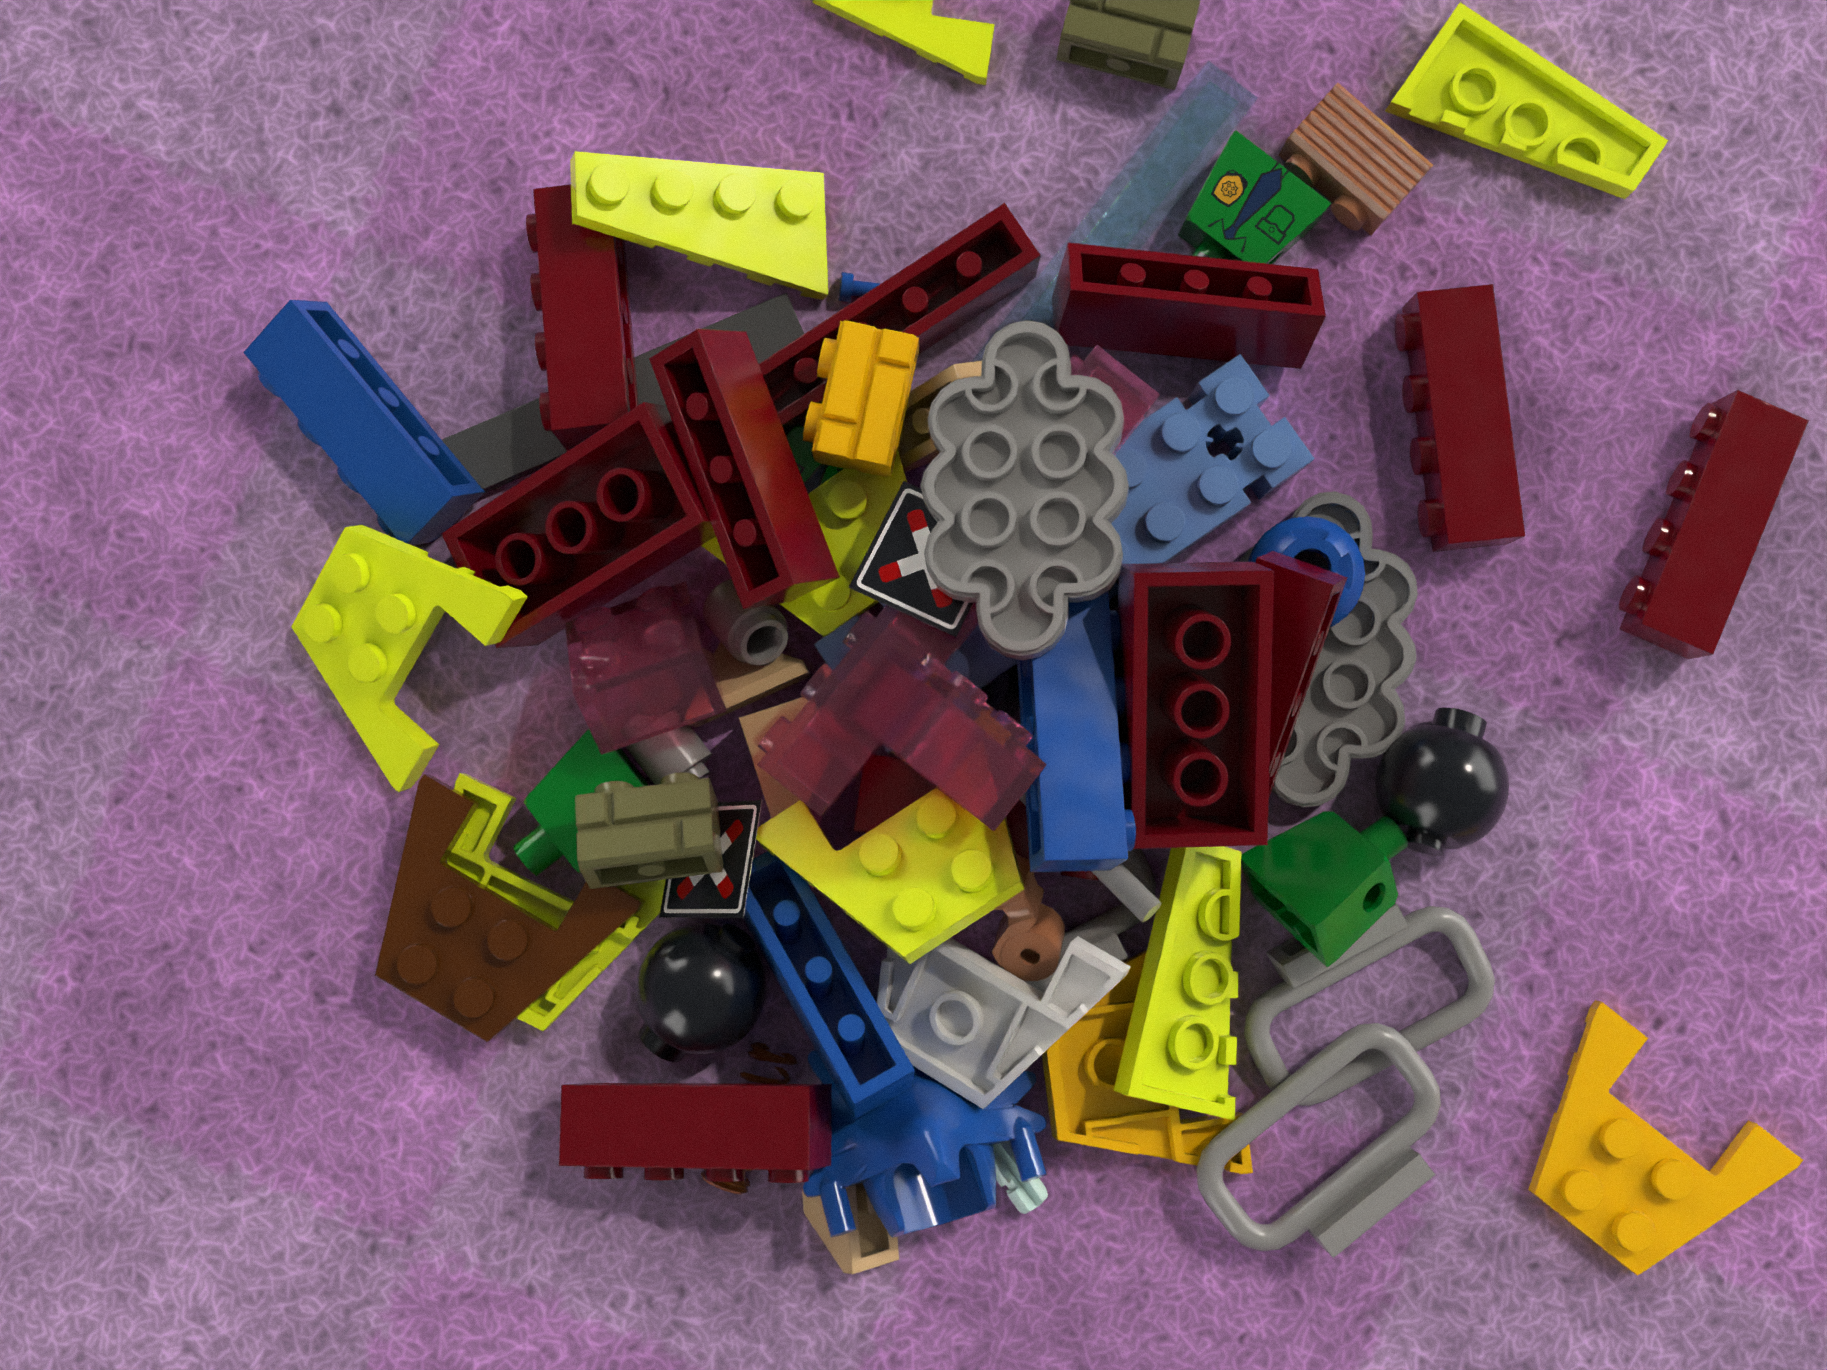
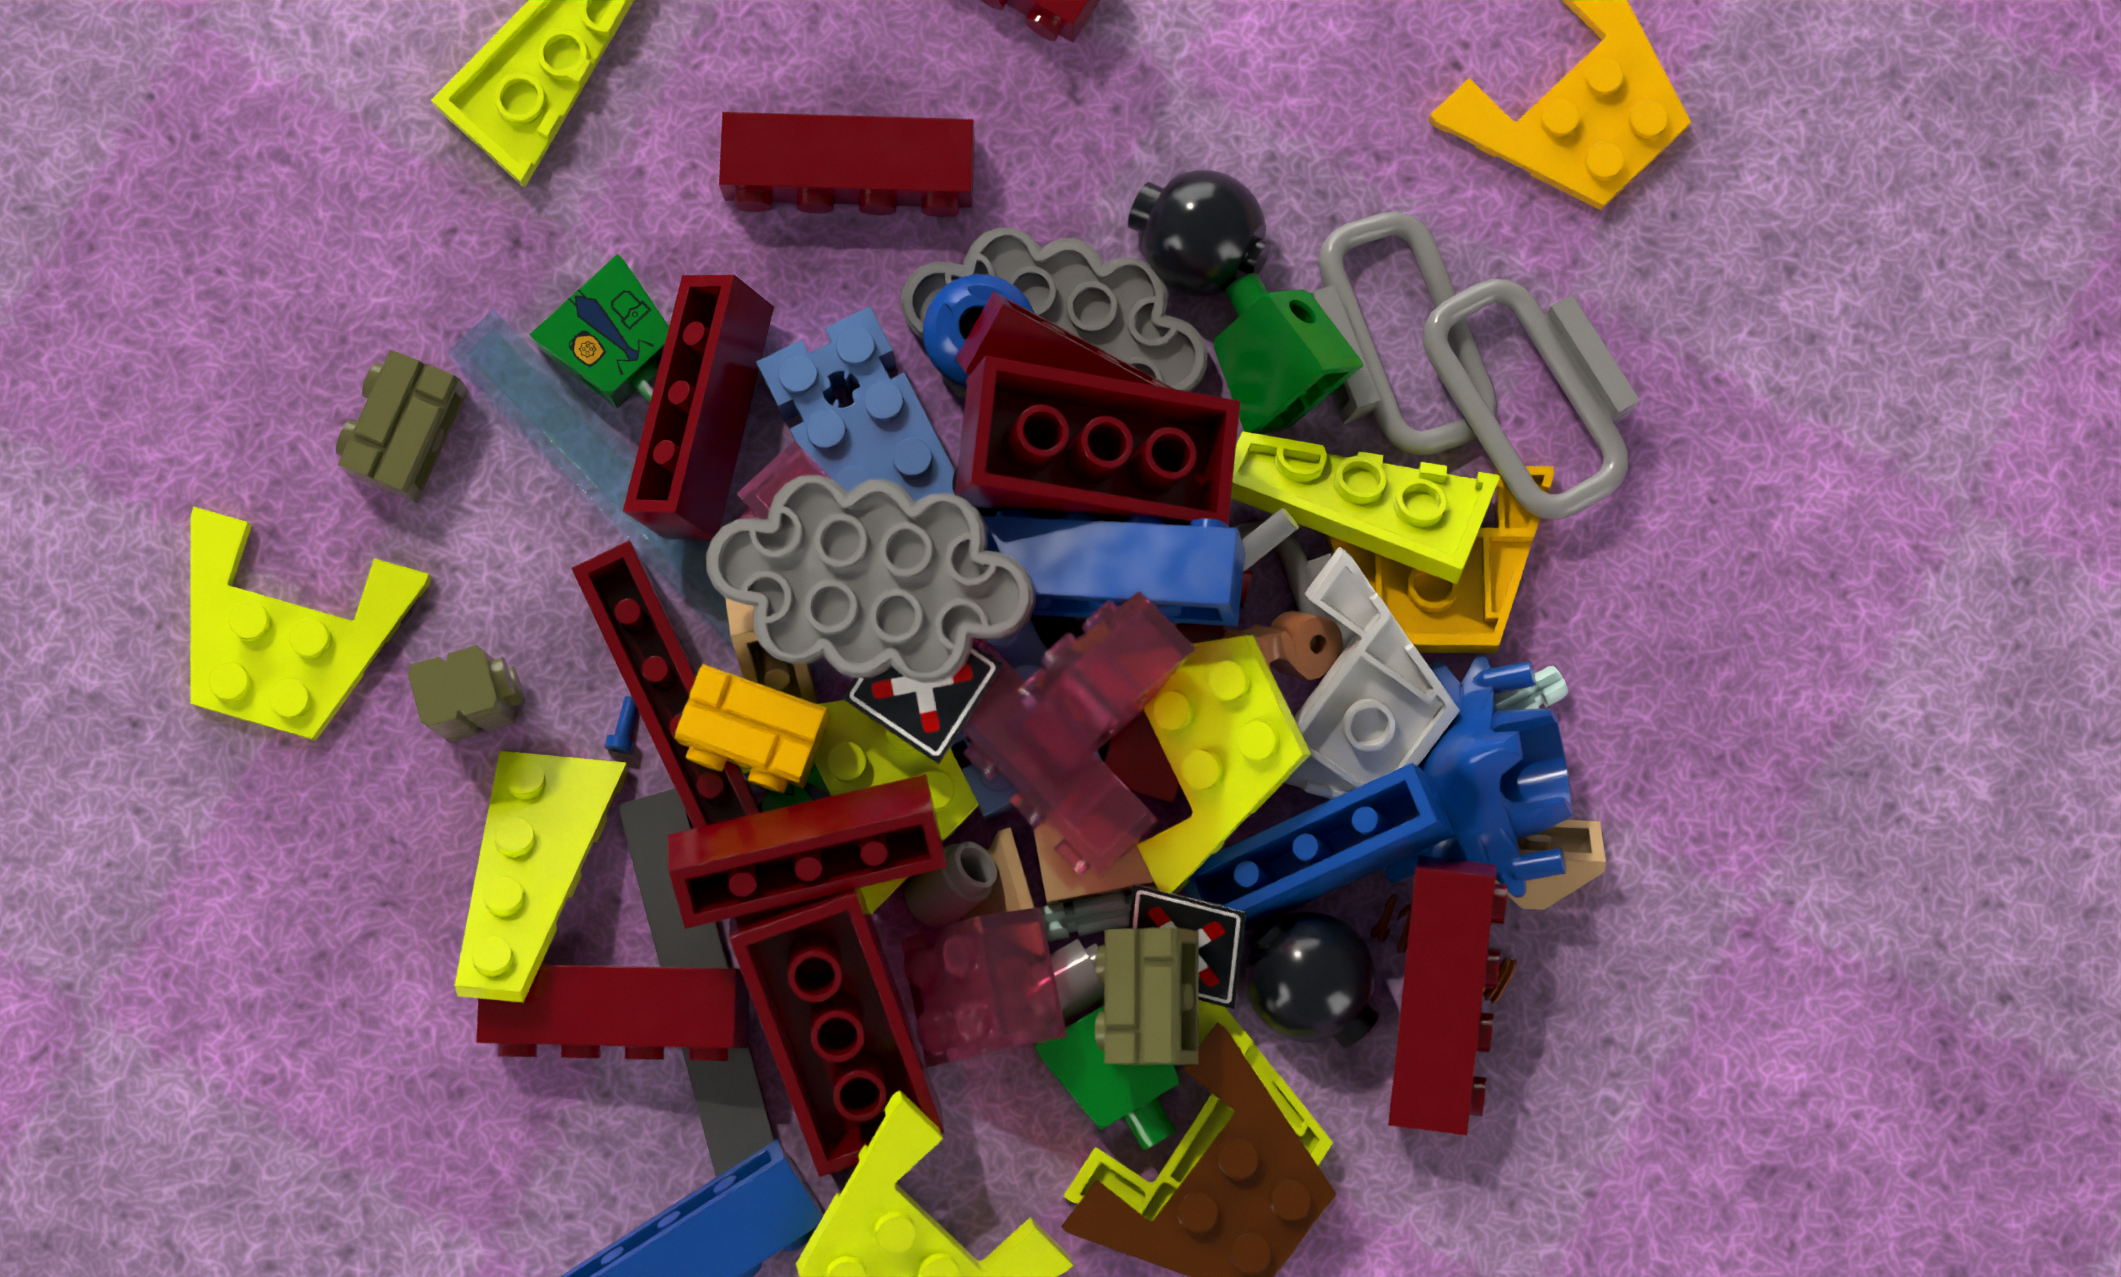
camera: 80 degrees left, 5 degrees down
(737, 761) = (1087, 915): none -> light aqua axle
(868, 122) = (465, 693): none -> olive brick
(1353, 160) = (574, 226): nougat brick -> none

